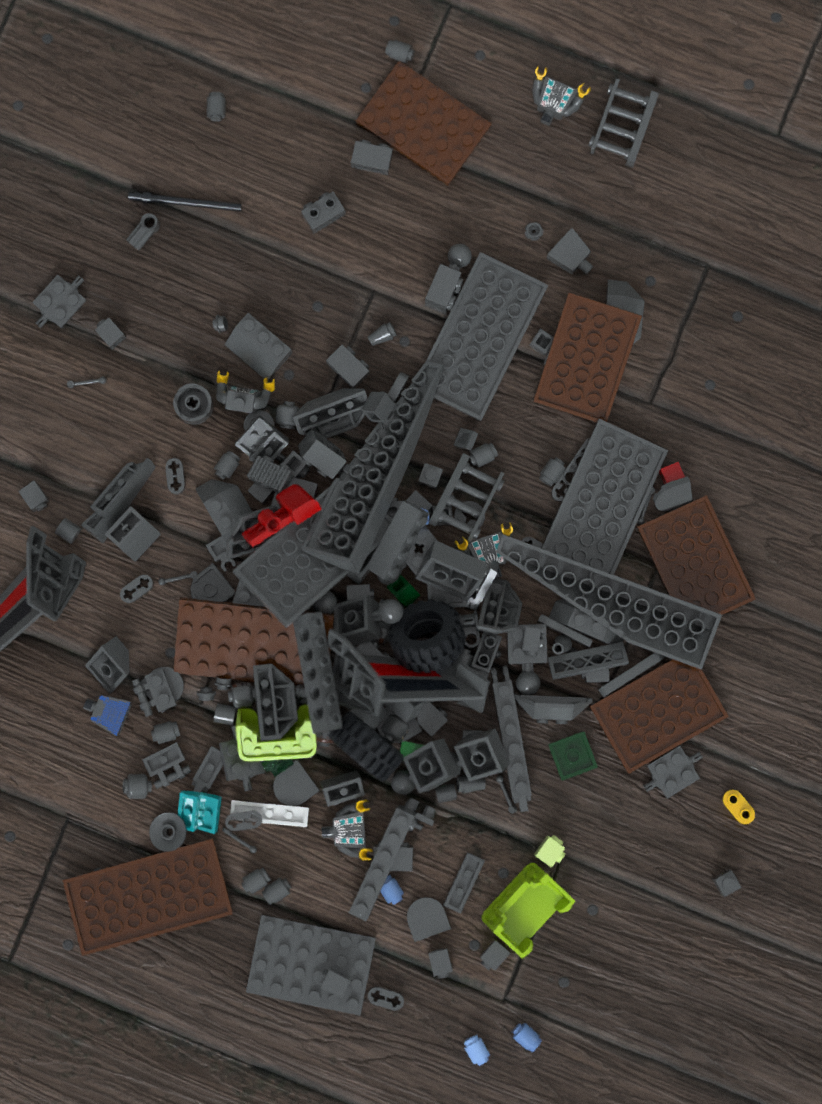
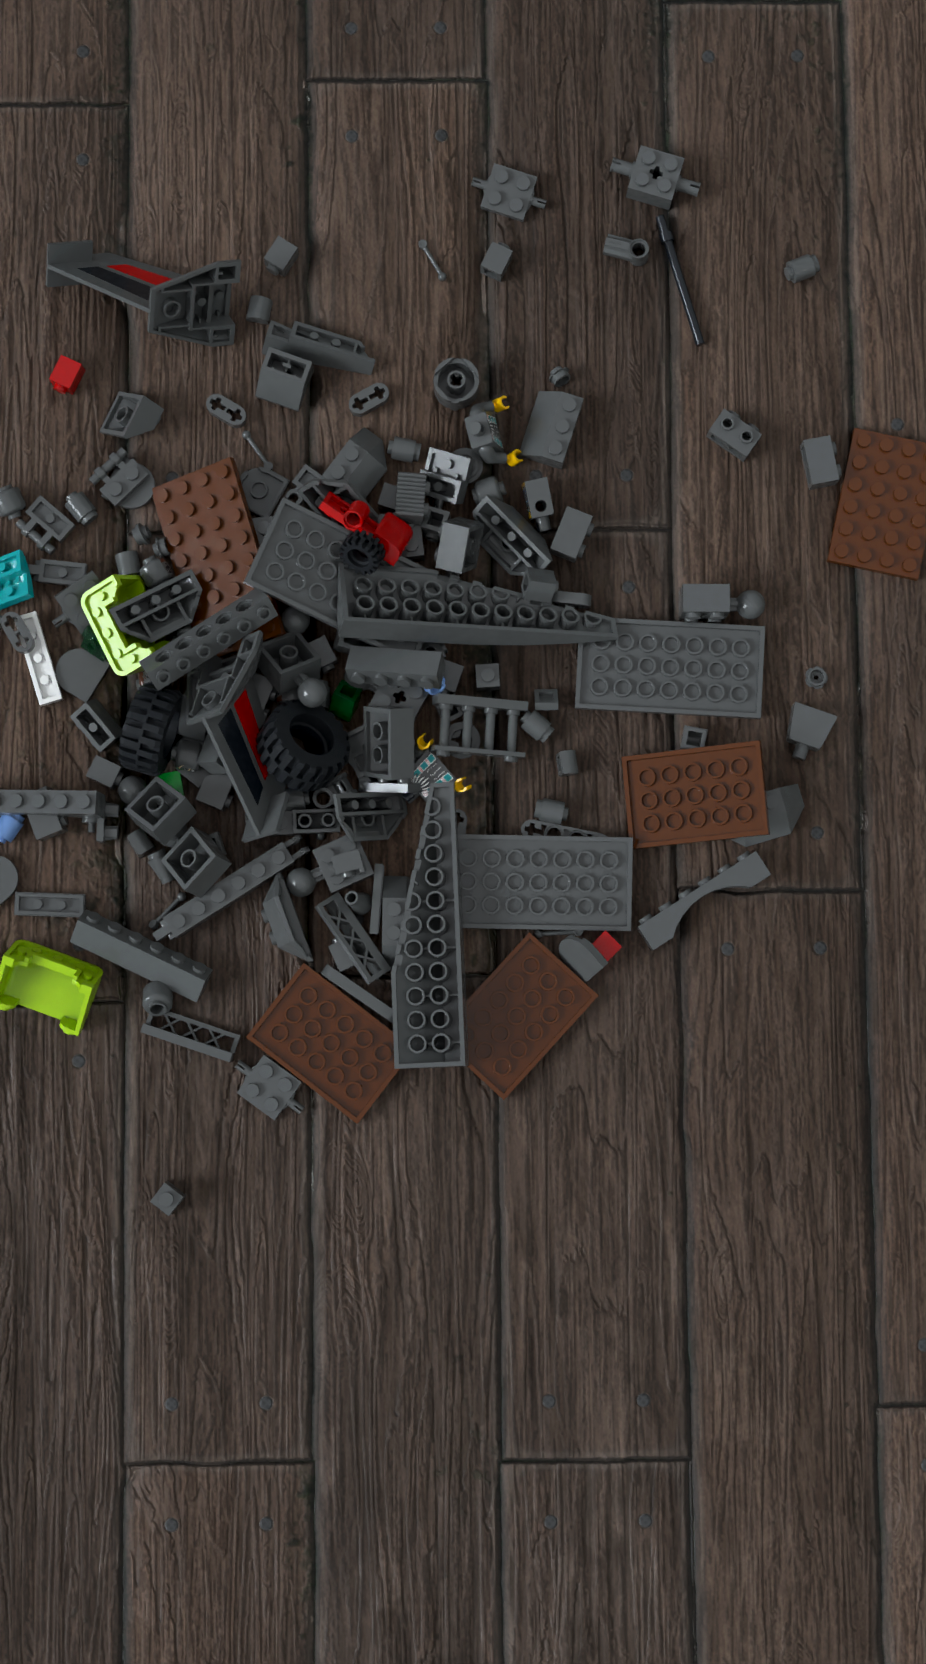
camera: 65 degrees right, 0 degrees up
(56, 700) = (66, 375): none -> red brick
(93, 196) = (655, 163): none -> dark grey brick
(109, 713) = (76, 438): torso -> none
(302, 527) = (355, 559): none -> black tyre
(304, 380) = (538, 492): none -> dark grey torso
(349, 830) = (54, 753): torso -> none
(381, 797) = (105, 772): none -> dark grey brick
(382, 334) = (626, 559): dark grey cone -> none
(520, 444) = (567, 763): none -> dark grey brick
(533, 827) = (141, 955): none -> dark grey brick
(550, 850) = (121, 984): yellowish green brick -> none
(571, 828) = (157, 998): none -> dark grey head
(572, 756) = (240, 966): dark green plate -> none
(613, 820) = (190, 1043): none -> dark grey fence
(674, 425) = (743, 874): none -> dark grey arch
(738, 807) = (260, 1178): yellow plate -> none

